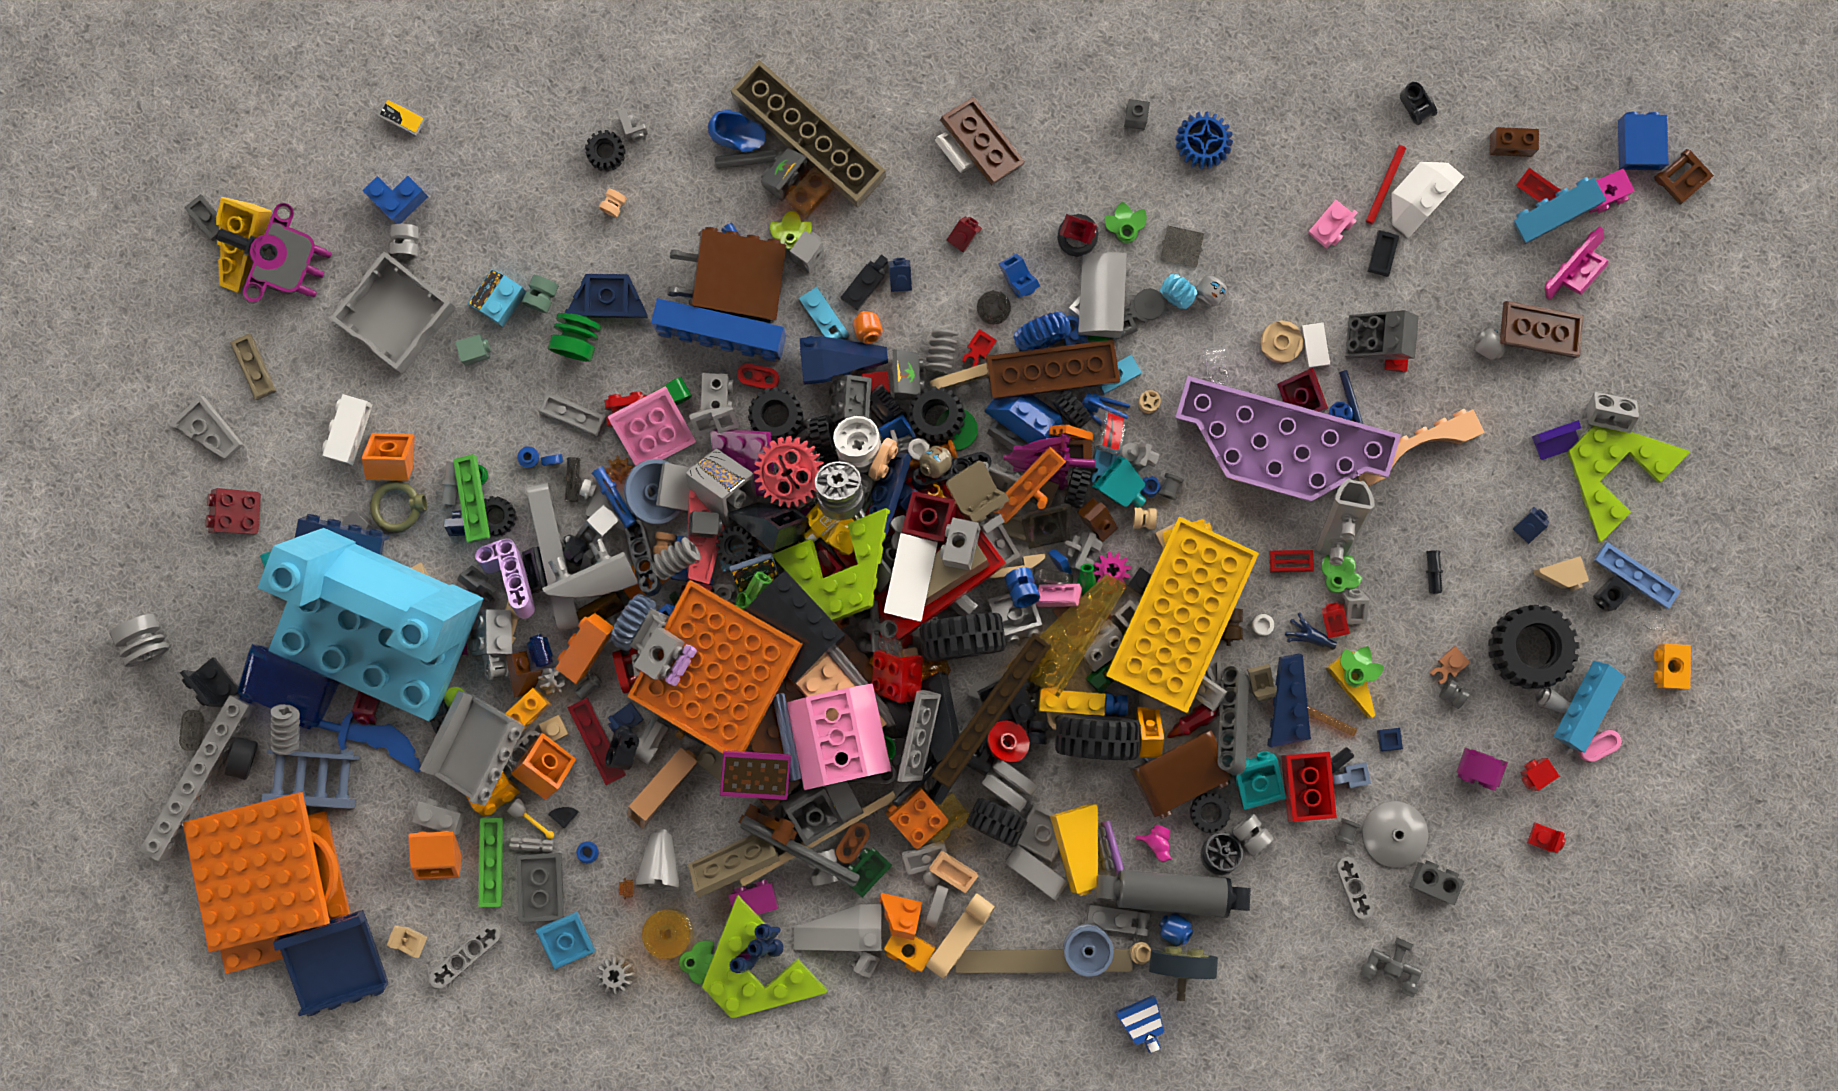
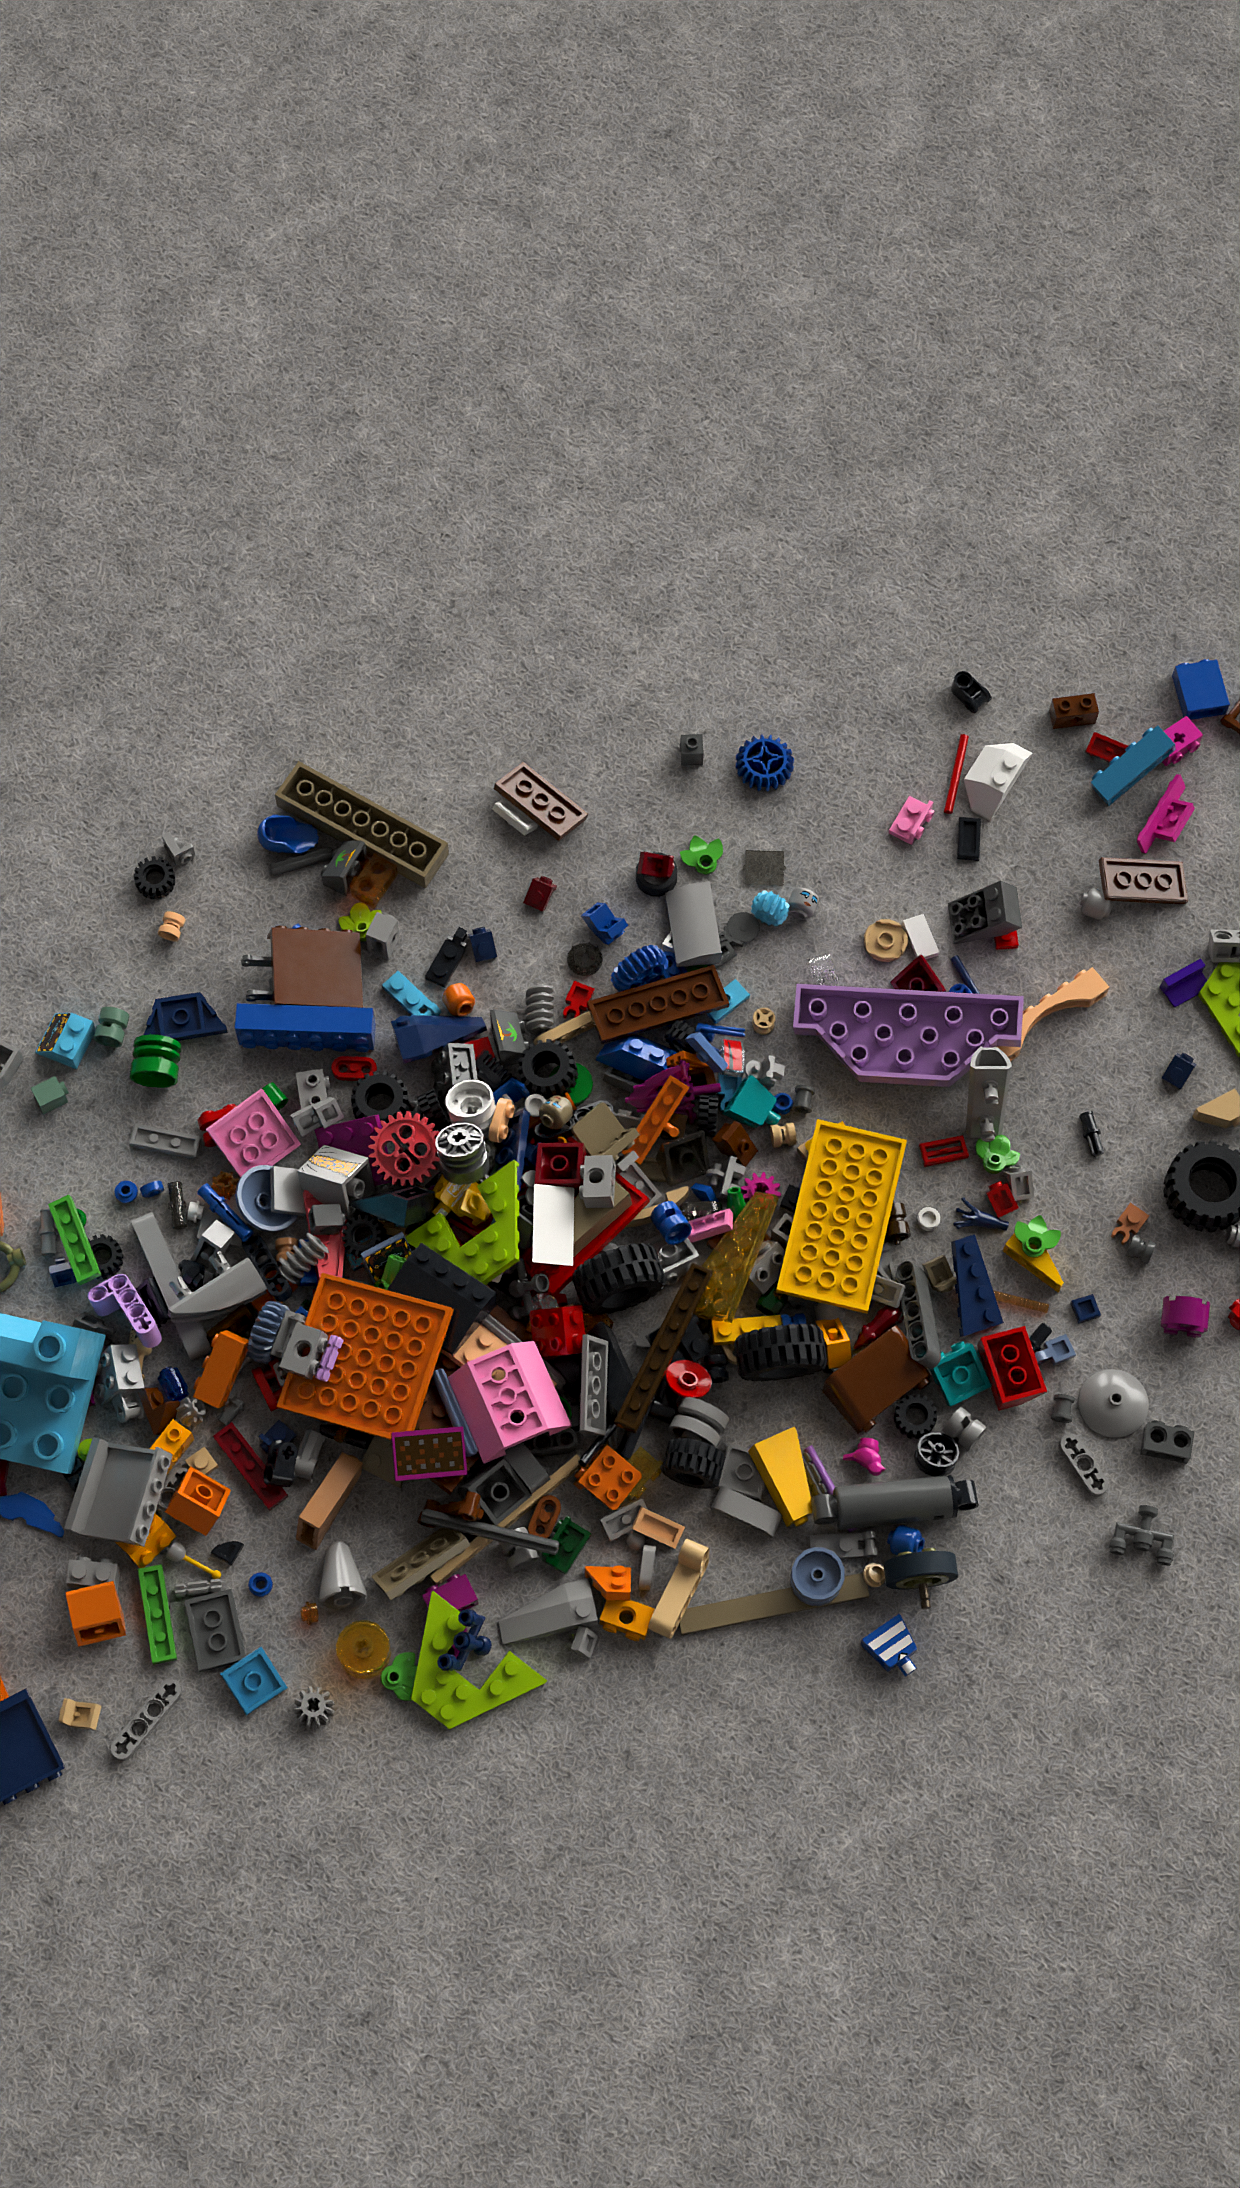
camera: 15 degrees left, 15 degrees down
(1088, 430) = (706, 1052): none -> medium blue plate

